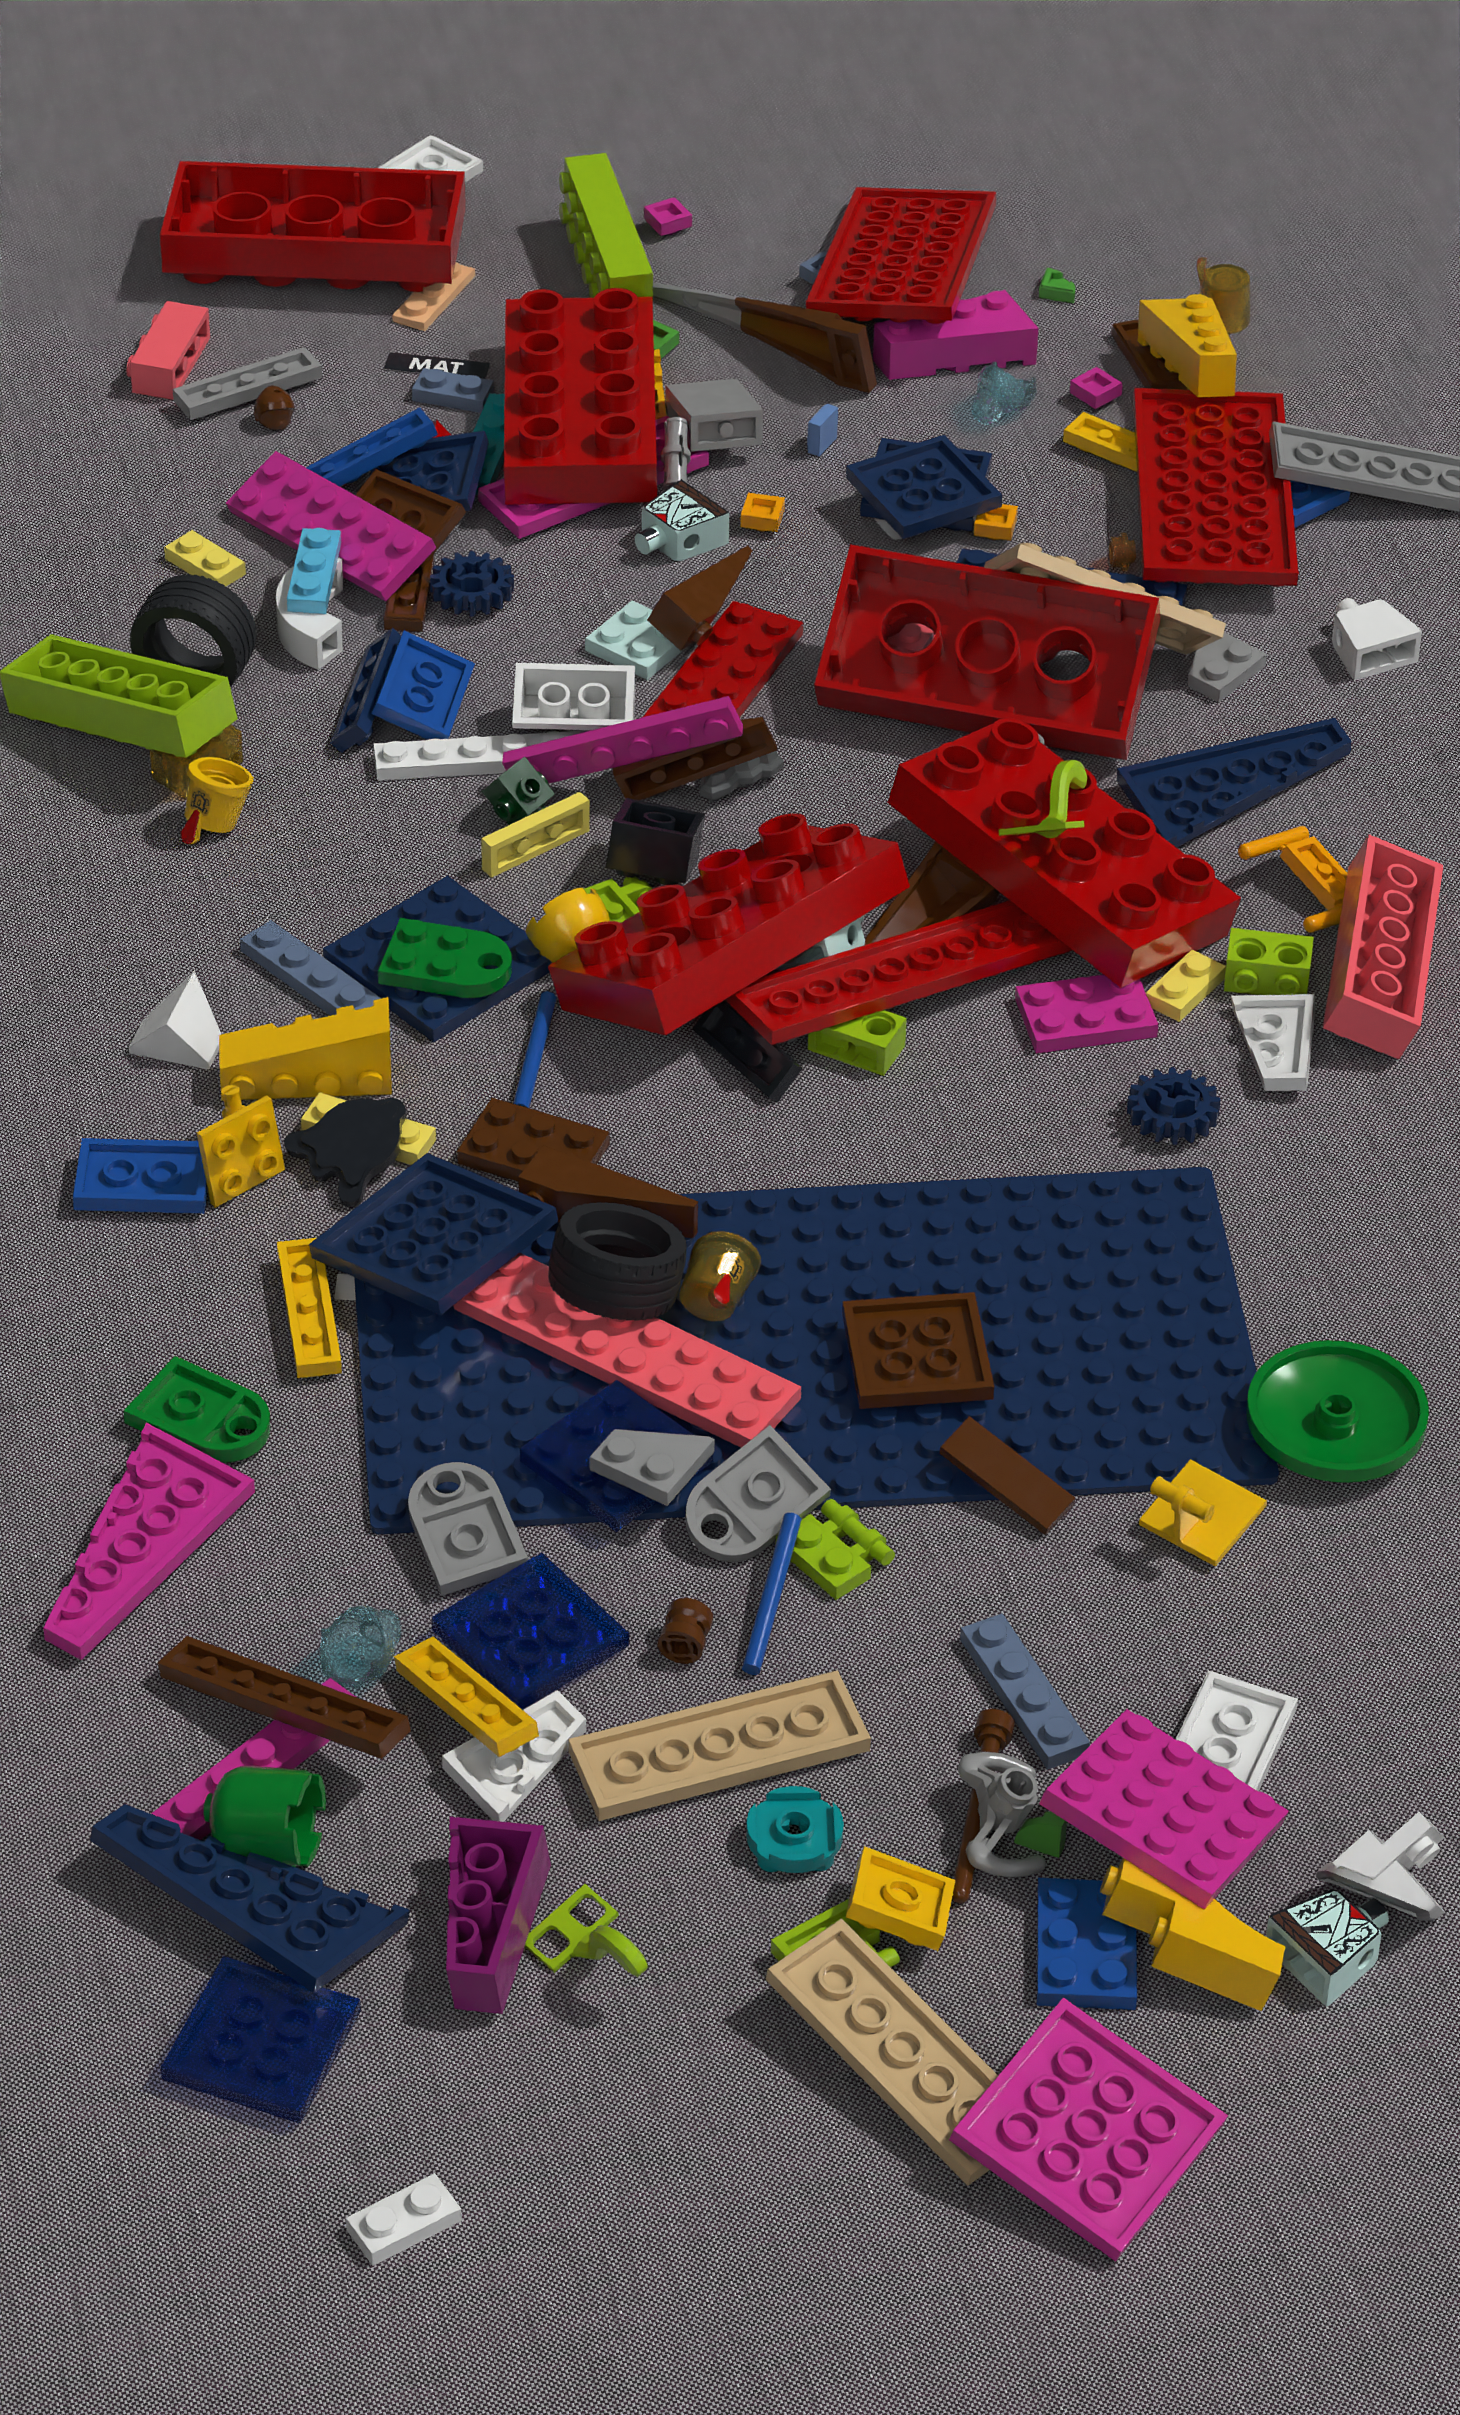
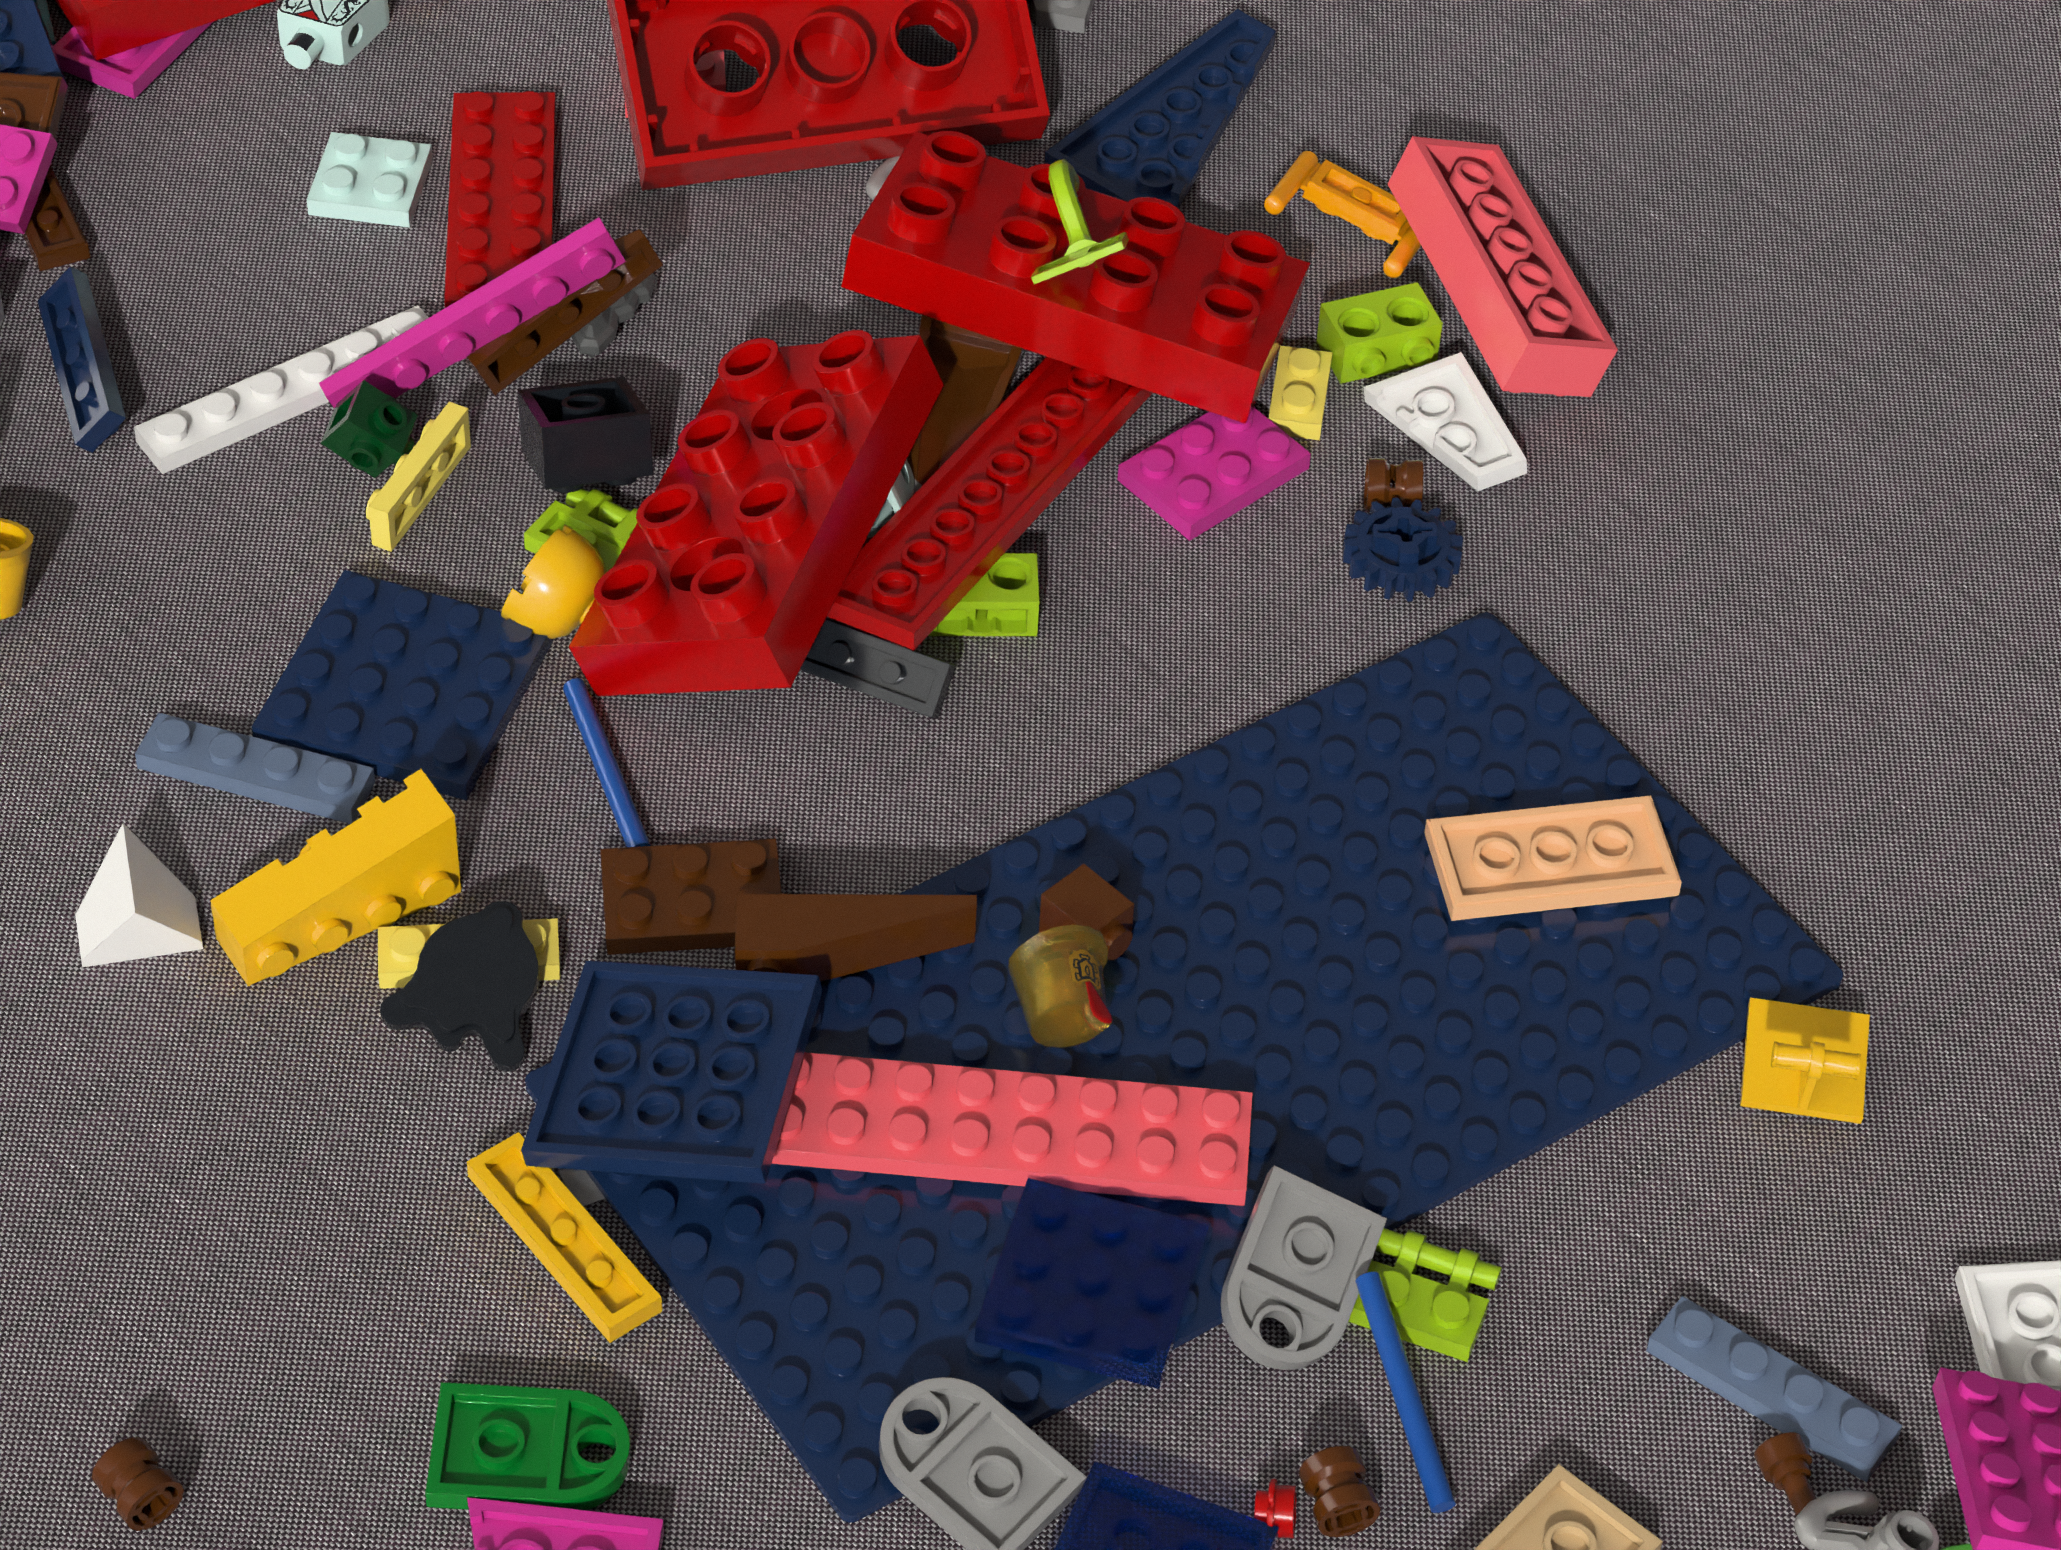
camera: 30 degrees left, 5 degrees up
(140, 1176) = (223, 1137): blue plate -> none
(240, 1147) = (344, 1044): yellow plate -> none
(423, 688) = (154, 332): blue plate -> none
(445, 960) = (427, 685): green plate -> none
(472, 583) = (121, 175): dark blue gear -> none
(572, 696) = (358, 282): white slope -> none
(617, 1261) = (939, 1018): black tyre -> none
(641, 1625) = (1278, 1507): none -> red plate
(651, 1461) = (1160, 1277): light grey wing -> none
(690, 607) = (430, 109): reddish brown slope -> none
(774, 1241) = (1092, 902): none -> reddish brown brick
(917, 1350) = (1352, 986): reddish brown plate -> none
(1007, 1475) = (1564, 1108): reddish brown tile -> none
(1122, 1328) = (1552, 858): none -> light nougat tile
(1201, 1061) = (1405, 480): none -> reddish brown wheel
(1337, 1411) = (1866, 867): green dish -> none

